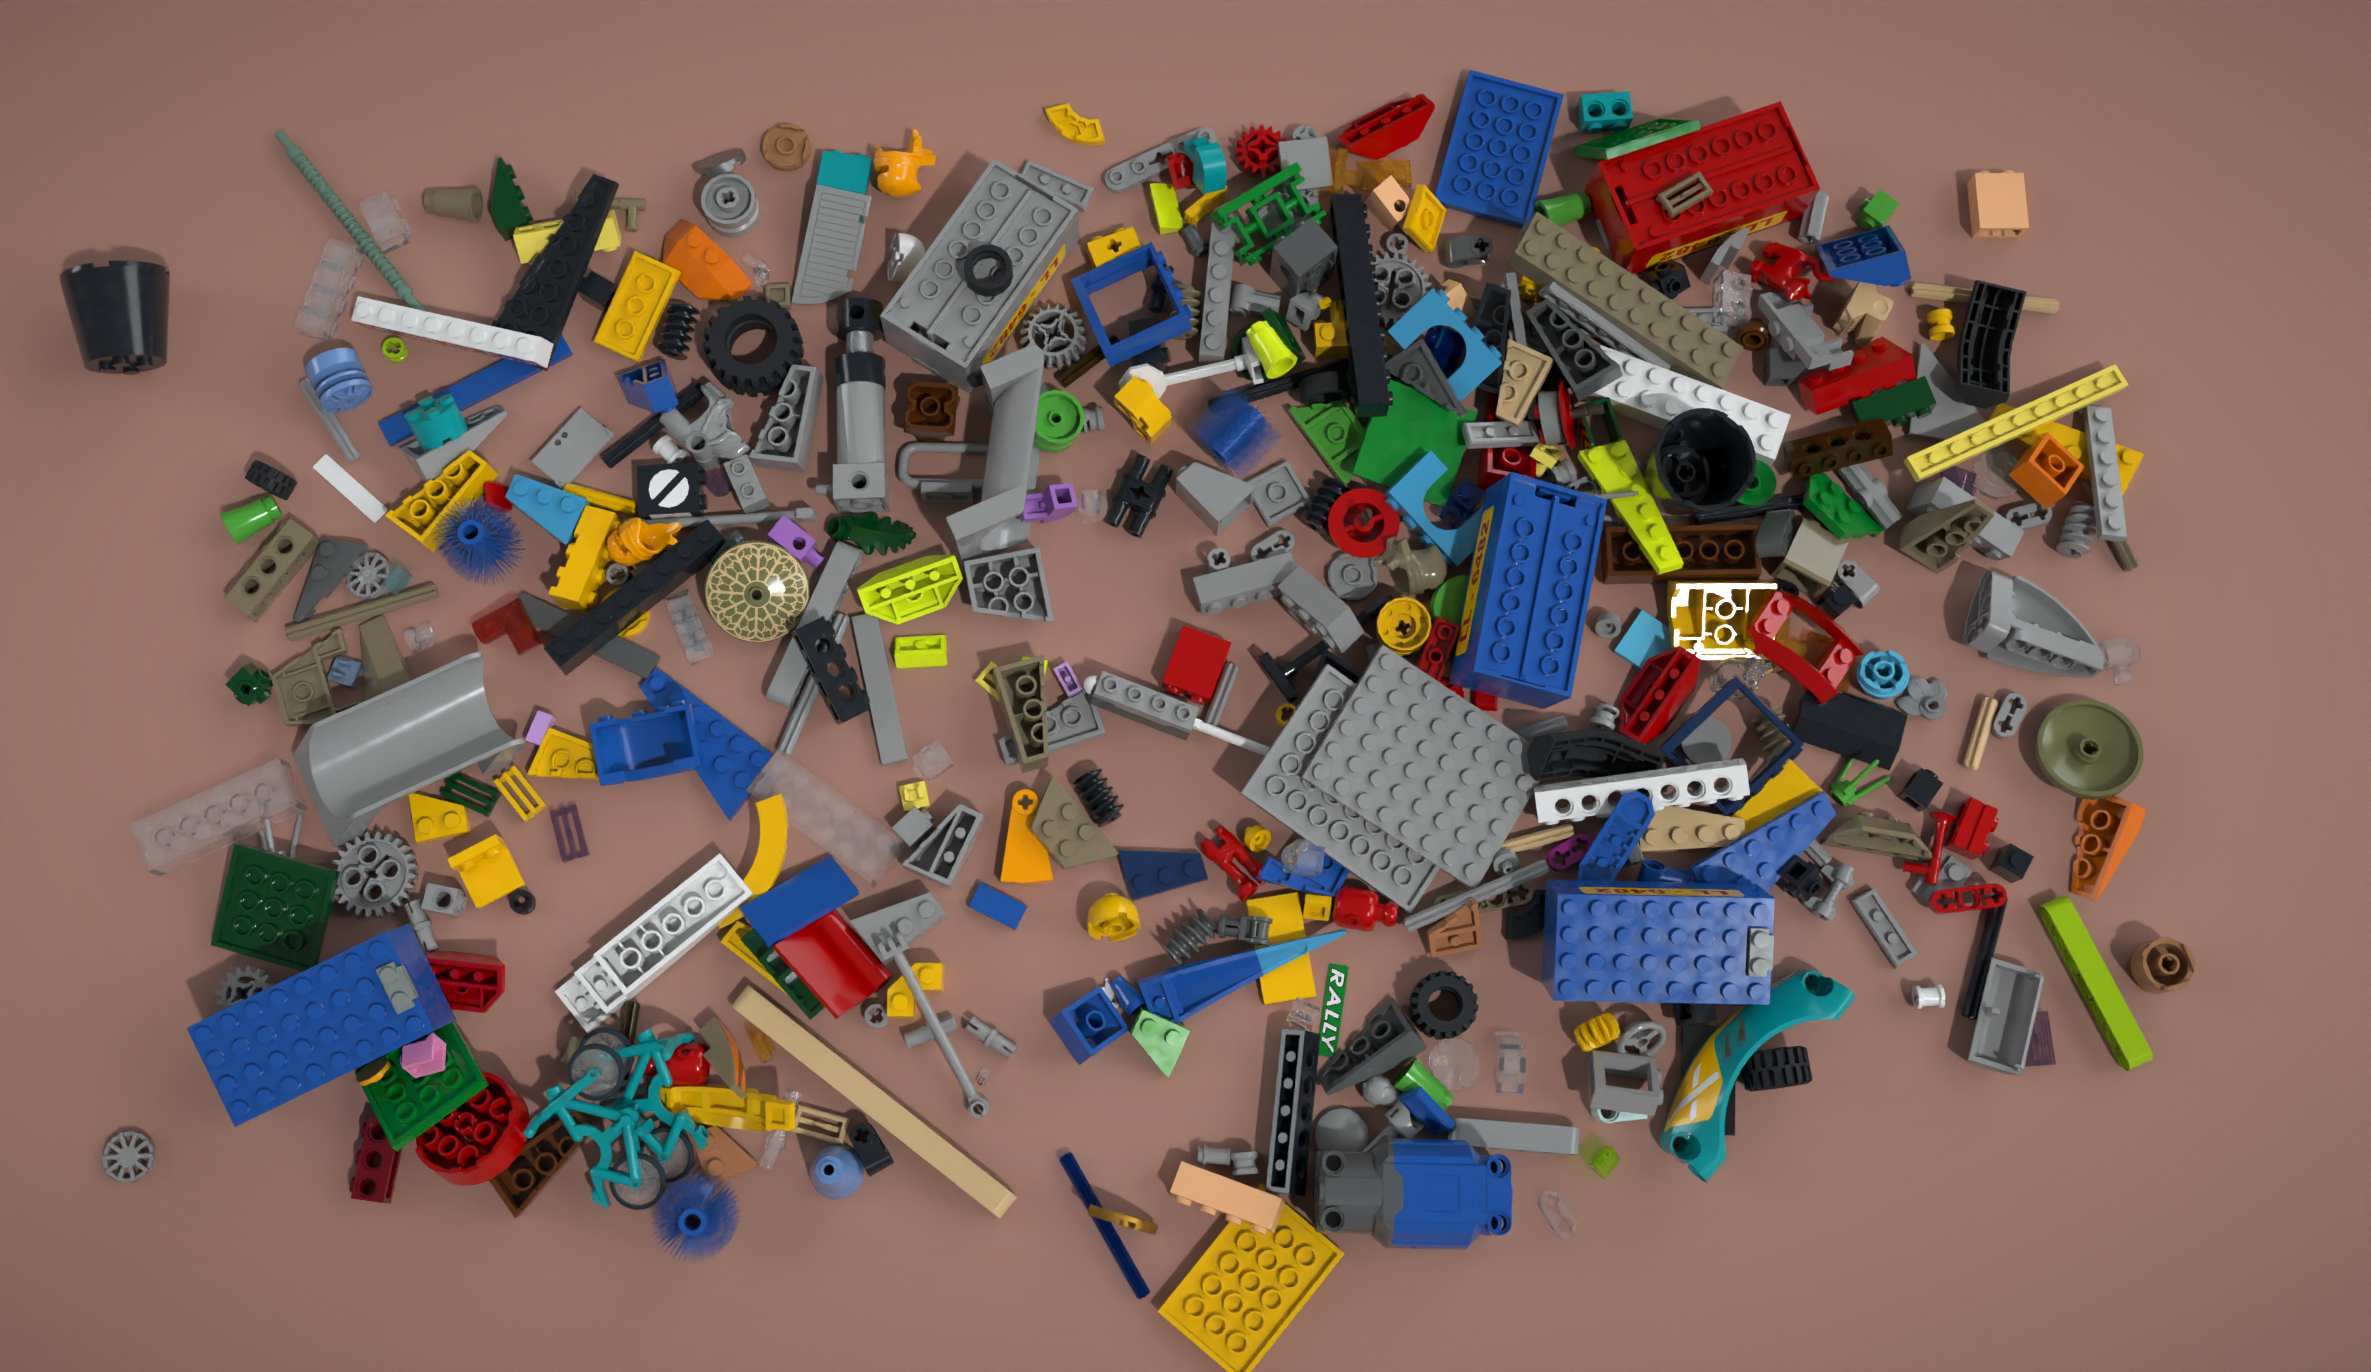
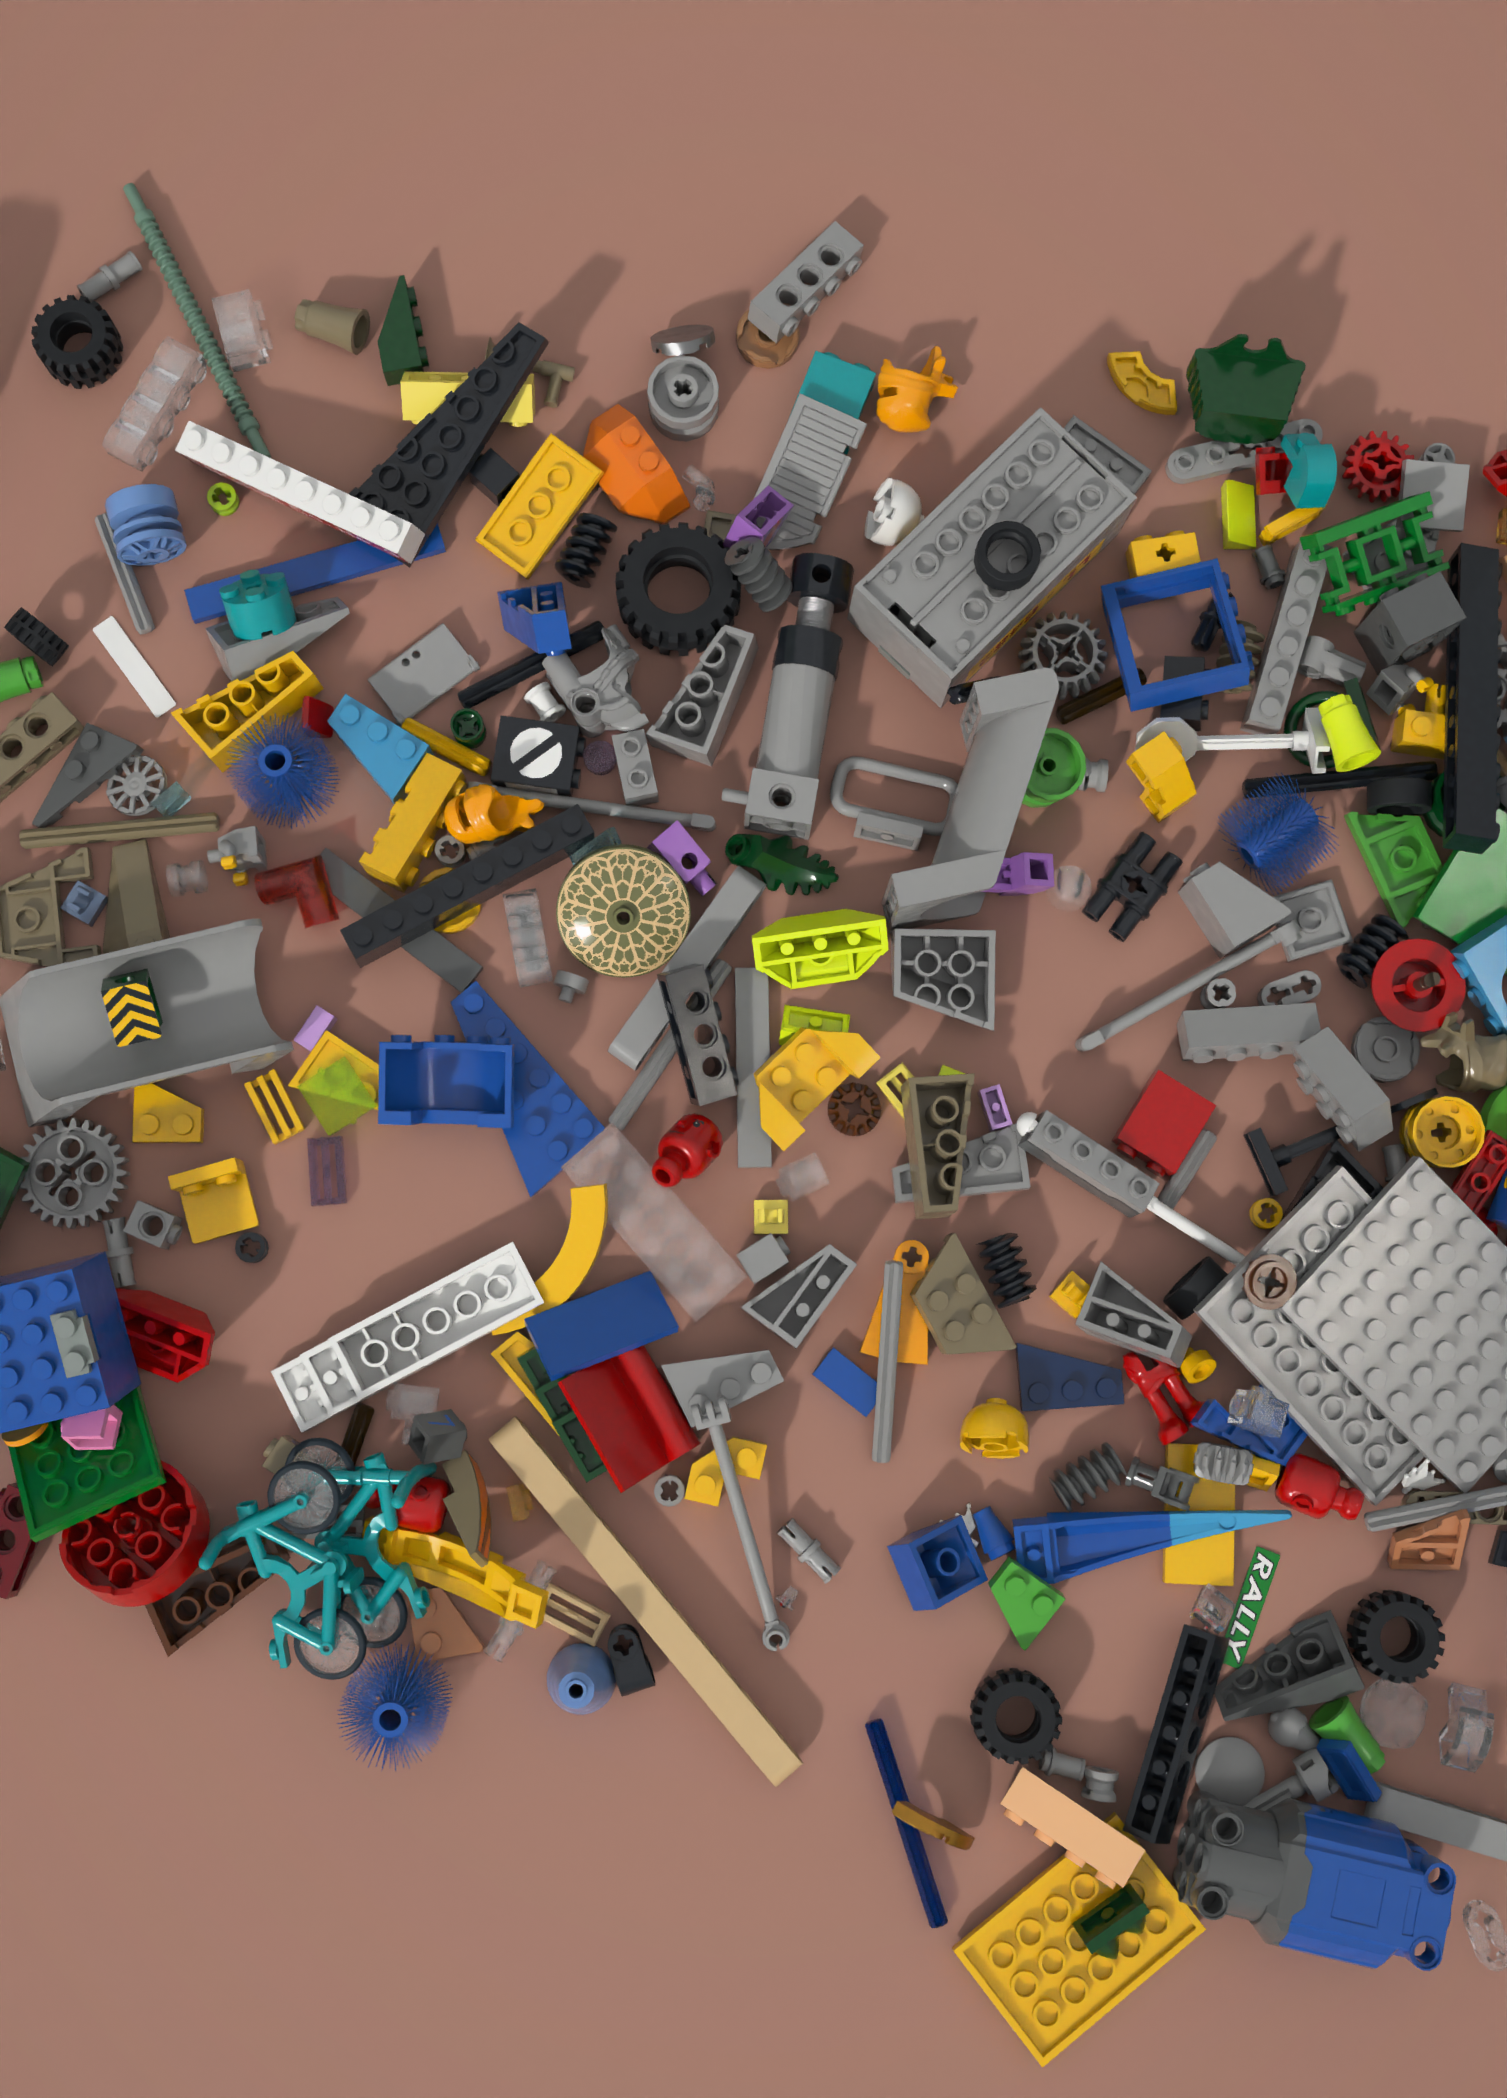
camera: 10 degrees right, 5 degrees up
(251, 240) = (63, 322): none -> black tyre
(277, 203) = (110, 277): none -> light grey pin
(396, 737) = (132, 1007): none -> piece
(451, 784) = (235, 1112): dark green tile -> none
(458, 608) = (240, 851): none -> light grey piece
(566, 774) = (337, 1096): none -> clear neon green piece
(610, 477) = (468, 722): none -> dark green wheel
(668, 993) = (411, 1400): none -> clear brick
(690, 1009) = (437, 1436): none -> dark grey brick
(729, 655) = (570, 985): none -> light grey tile
(795, 296) = (766, 504): none -> medium lavender torso
(810, 321) = (759, 573): none -> dark grey piece
(821, 72) = (832, 247): none -> light grey brick
(839, 757) = (686, 1150): none -> red piece
(919, 685) = (804, 1075): none -> yellow piece
(926, 1034) = (726, 1526): light grey axle -> none
(931, 410) = (889, 721): reddish brown piece -> none
(969, 712) = (860, 1123): none -> reddish brown gear
(1021, 882) = (887, 1361): none -> light grey axle
(1146, 117) = (1242, 391): none -> dark green piece
(1154, 806) = (1071, 1294): none -> yellow tile
(1170, 1101) = (1040, 1733): none -> black tyre
(1197, 813) = (1130, 1320): none -> light grey wedge
(1238, 779) = (1194, 1287): none -> black tyre
(1259, 505) = (1286, 934): none -> light grey hinge
(1263, 1267) = (1110, 1918): none -> dark green tile
(1287, 903) = (1223, 1463): none -> light grey gear
(1298, 750) = (1275, 1295): none -> gear
(1341, 175) = (1476, 520): clear yellow tile -> none
(1439, 886) = (1420, 1478): none -> white piece

